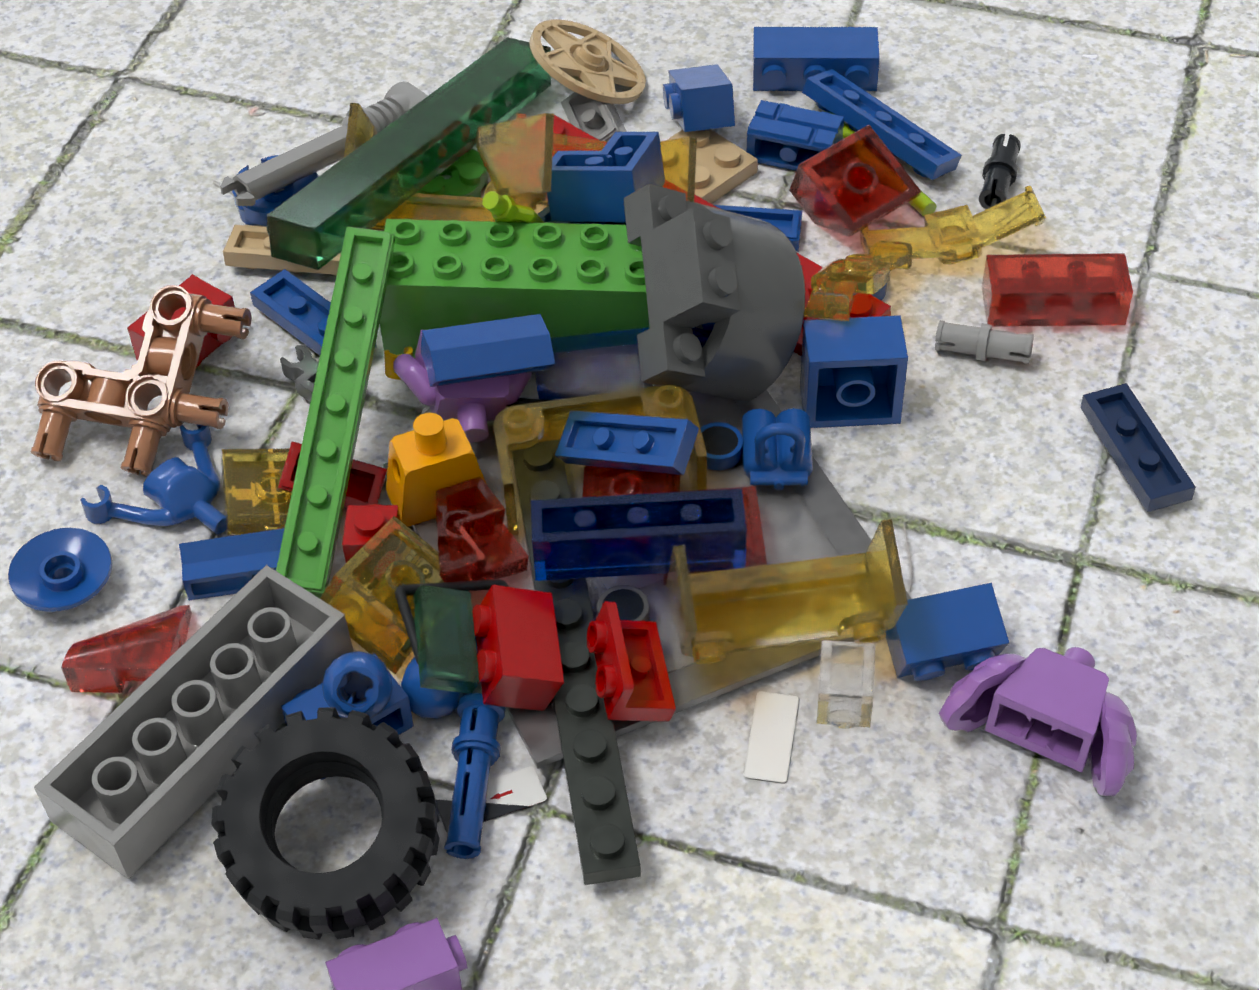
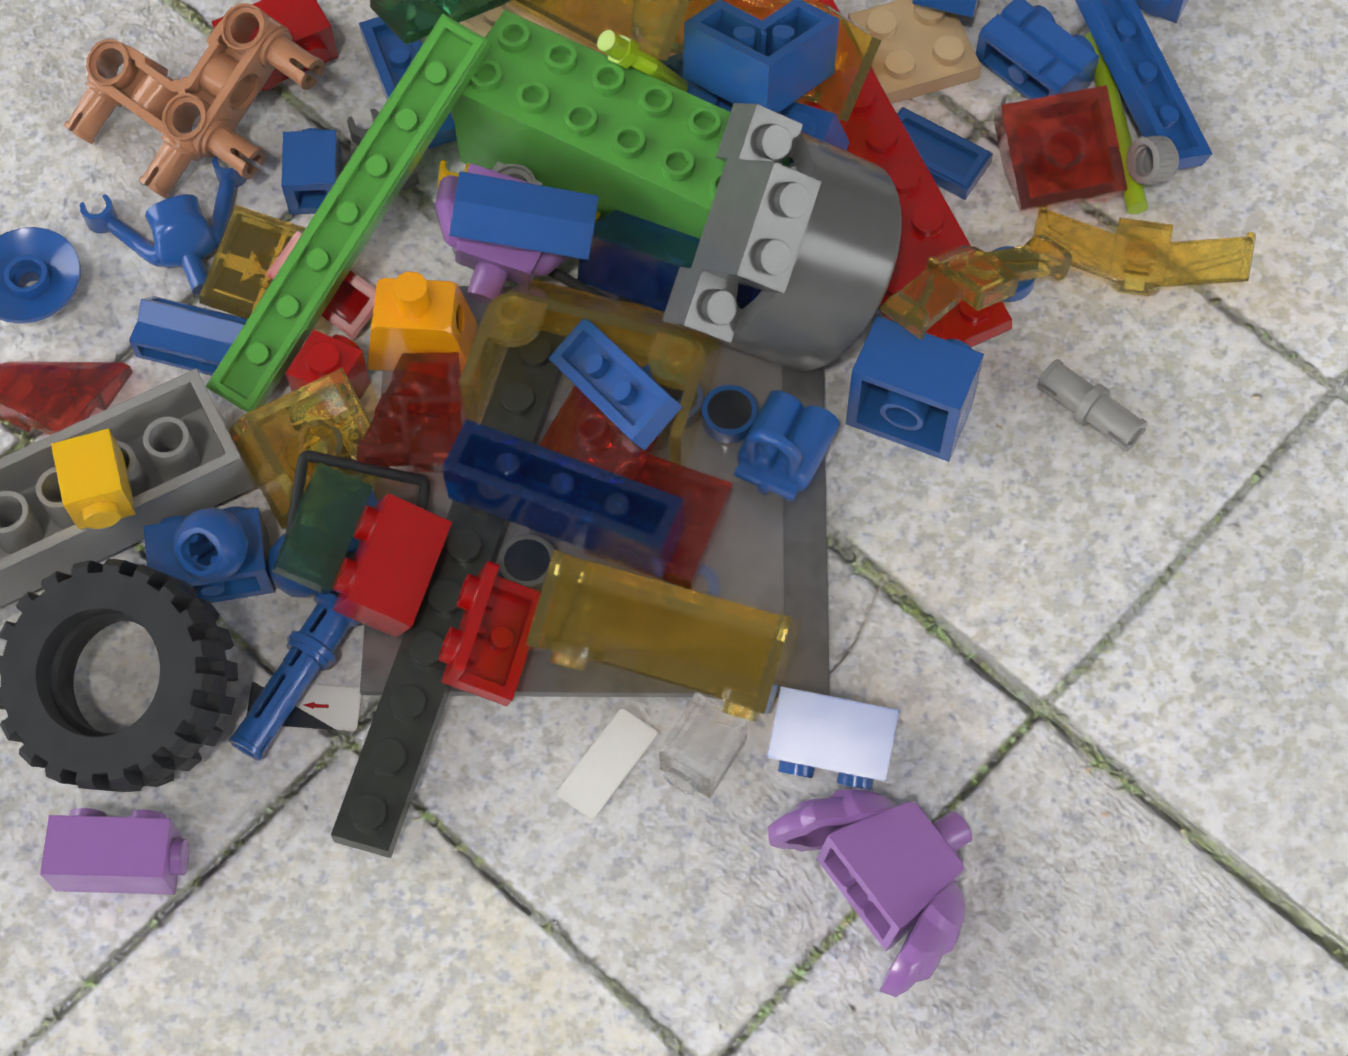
camera: 25 degrees right, 15 degrees up
(229, 671) = (93, 480): none -> yellow brick
(271, 407) = (309, 168): none -> blue brick
(936, 164) = (1164, 159): none -> light grey axle
(999, 171) = (1245, 192): black pin -> none
(1056, 289) = (1210, 374): clear red brick -> none
(1137, 447) = (1178, 607): dark blue plate -> none

